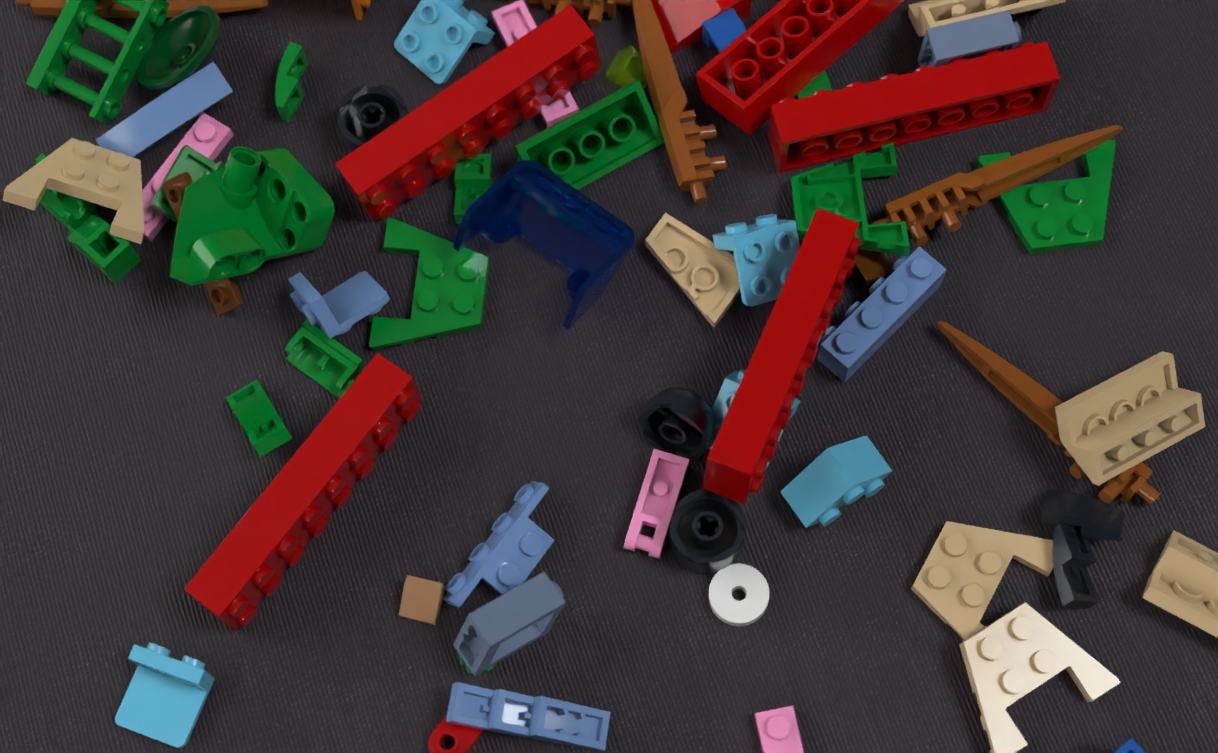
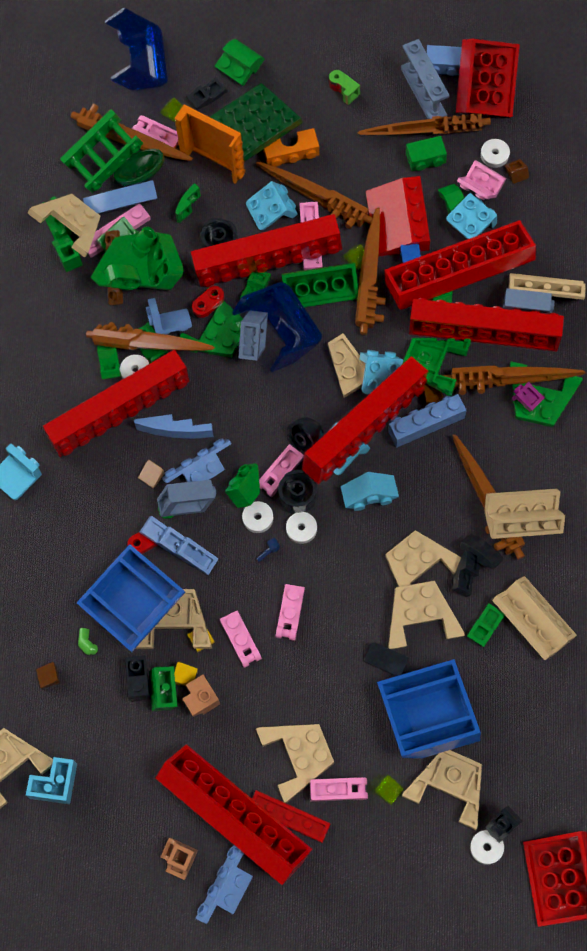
camera: 20 degrees right, 0 degrees up
(288, 362) = (133, 339): none -> dark orange piece
(301, 405) = (132, 362): none -> white piece
(399, 241) = (210, 302): none -> red plate
(414, 501) = (167, 427): none -> medium blue slope
(510, 275) = (251, 338): none -> sand blue window
(606, 557) = (245, 486): none -> green slope
(650, 588) = (262, 524): none -> white piece
(703, 650) = (273, 547): none -> dark blue hand
(1040, 205) = (527, 396): none -> magenta bracket
(1148, 647) = (486, 625): none -> green slope

